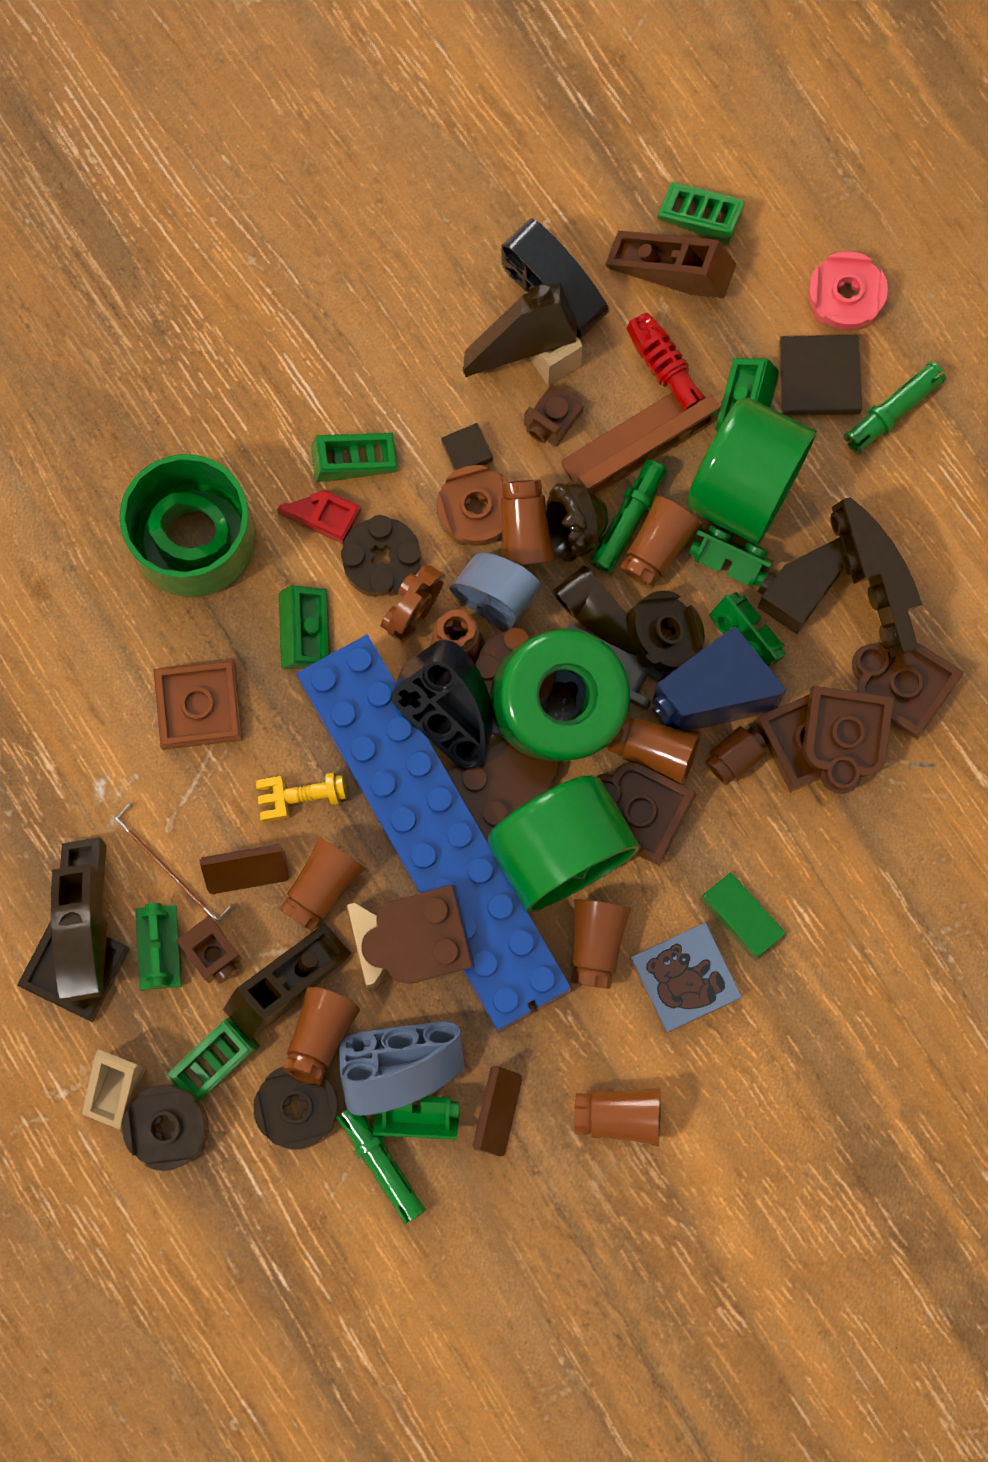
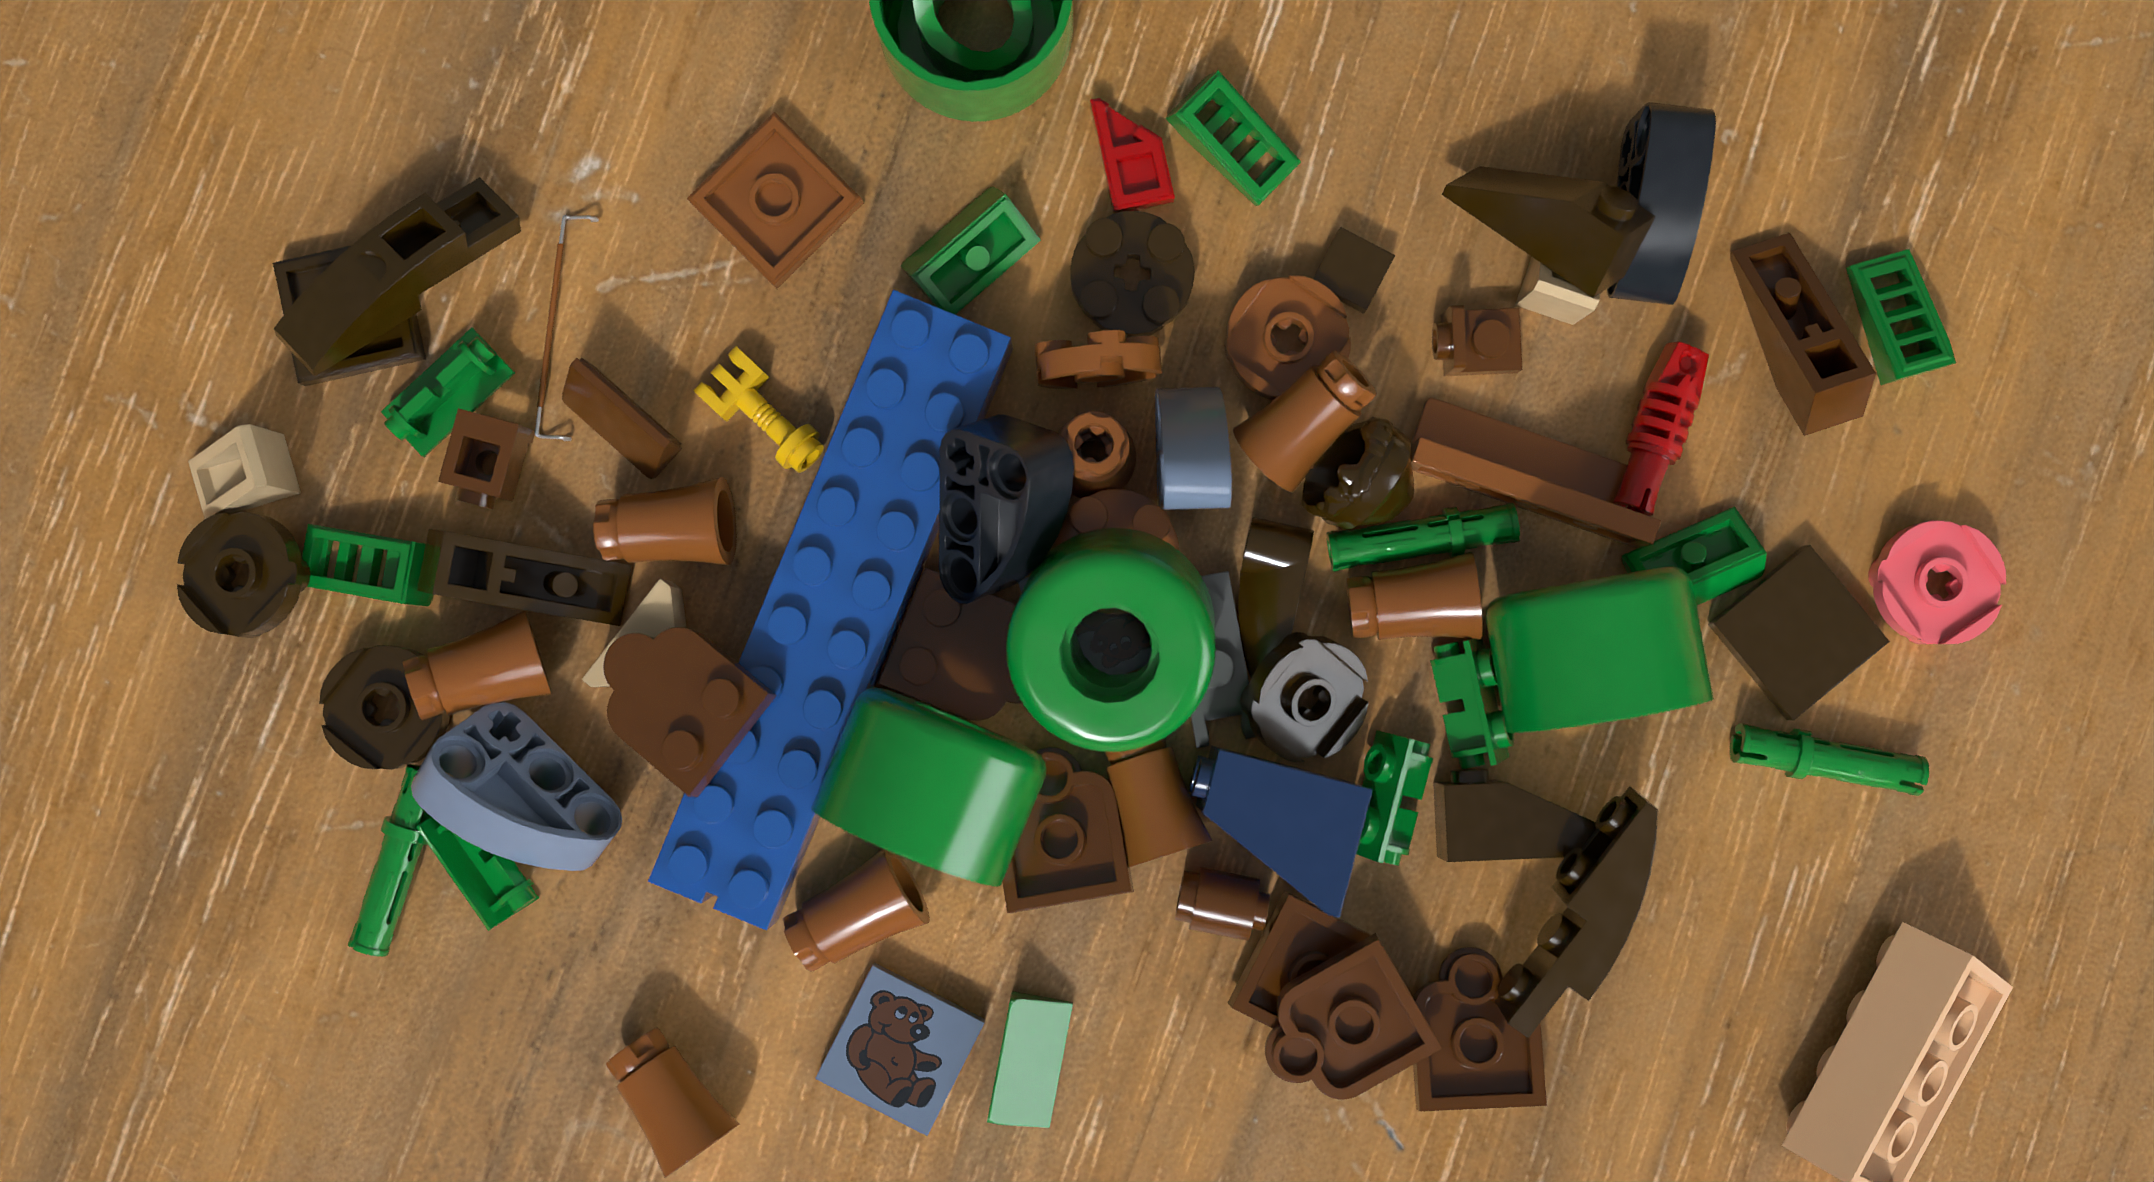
camera: 50 degrees right, 10 degrees up
(497, 1111) = (564, 948): reddish brown slope -> none

